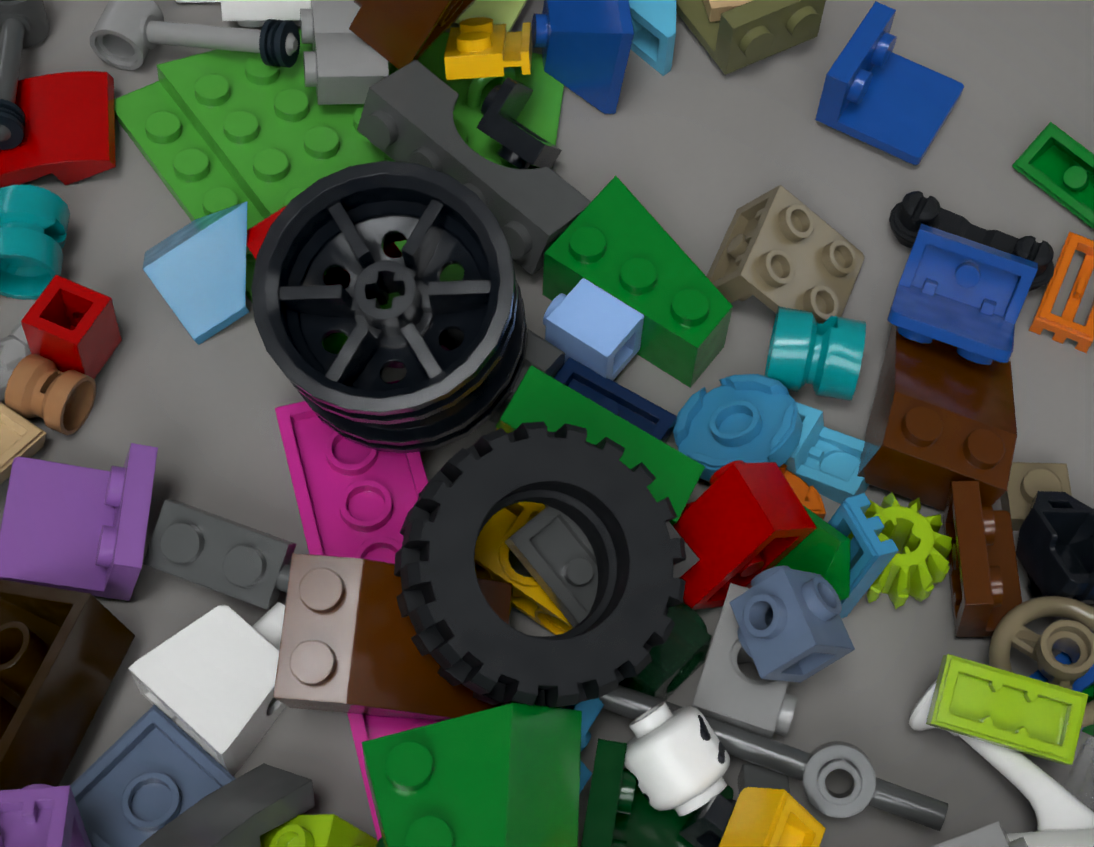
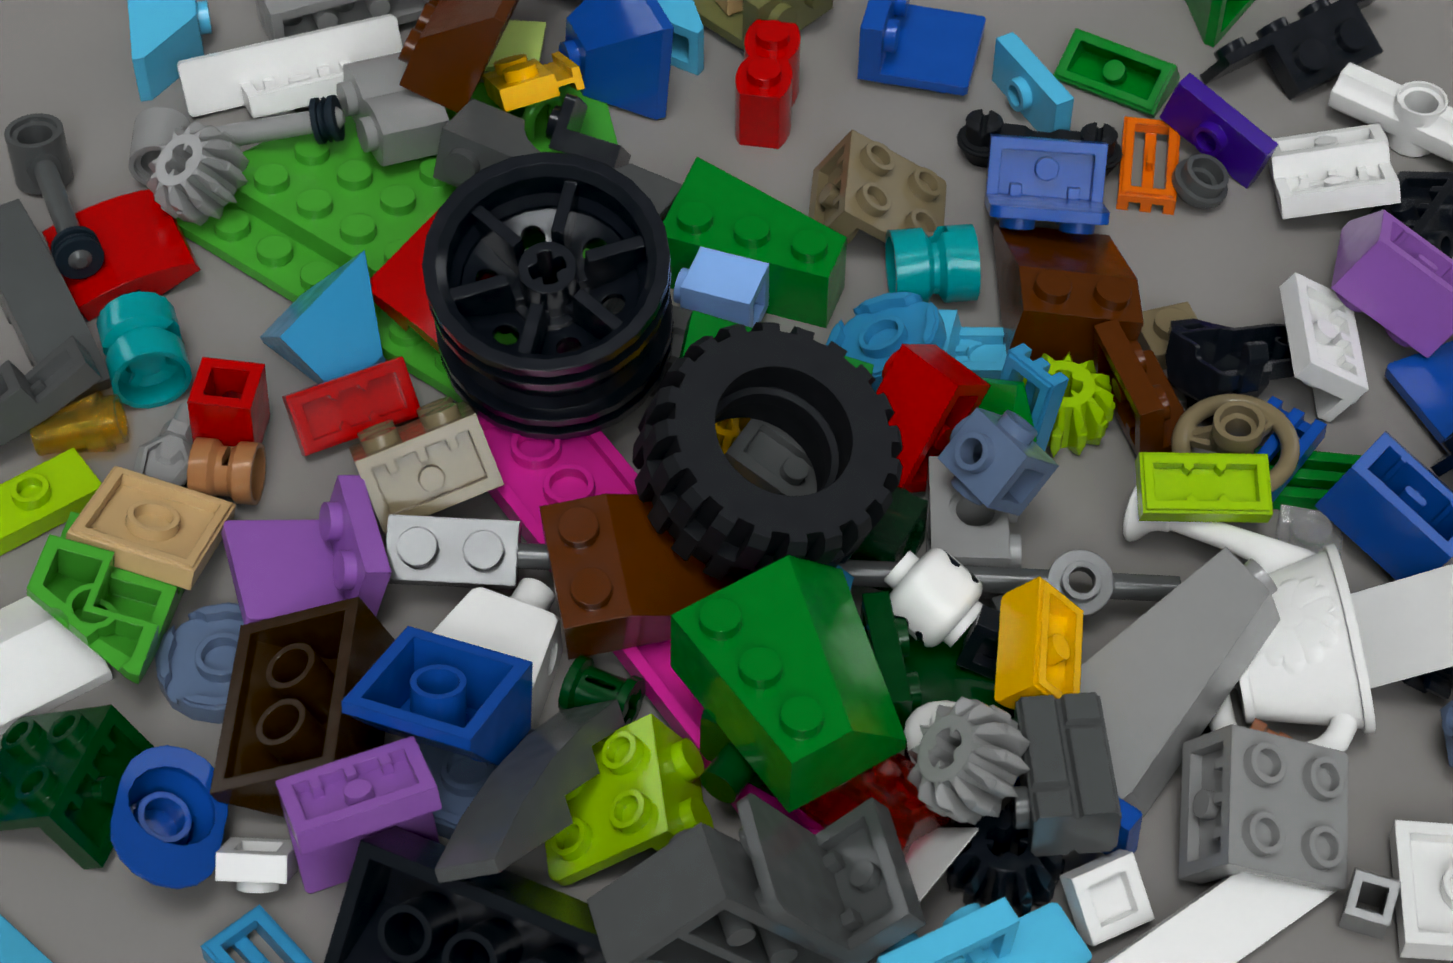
camera: 15 degrees left, 10 degrees down
(126, 742) = (446, 695): none -> blue slope
(139, 69) = (197, 173): none -> light grey gear
(194, 354) = (350, 403): none -> red plate
(229, 442) = (426, 461): none -> dark tan bracket
(301, 735) = (592, 685): none -> dark green bush
(720, 106) = (767, 83): none -> red brick
(983, 175) = (1030, 86): none -> medium azure plate

